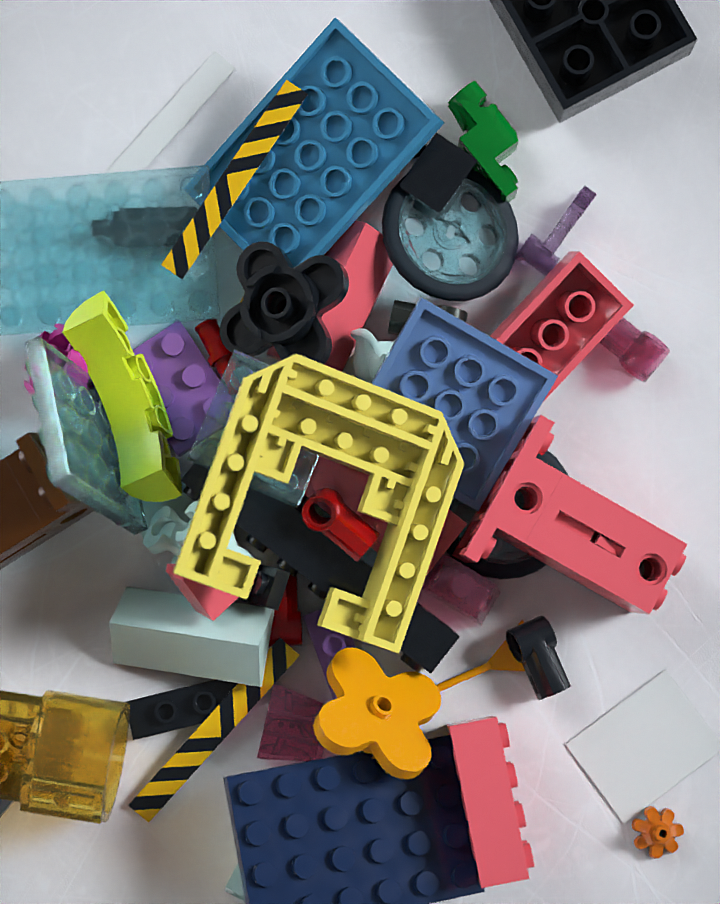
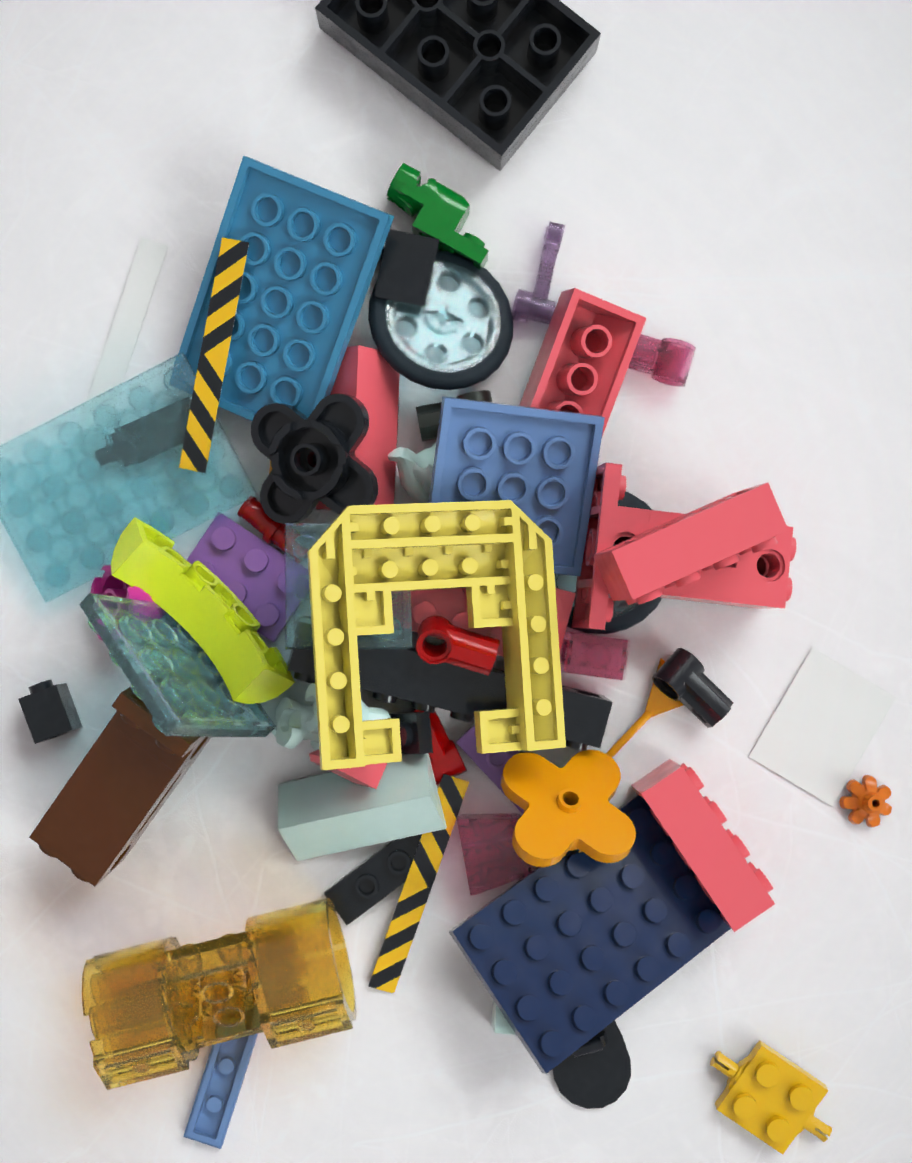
camera: 30 degrees left, 5 degrees up
(587, 513) = (691, 542): none -> coral brick

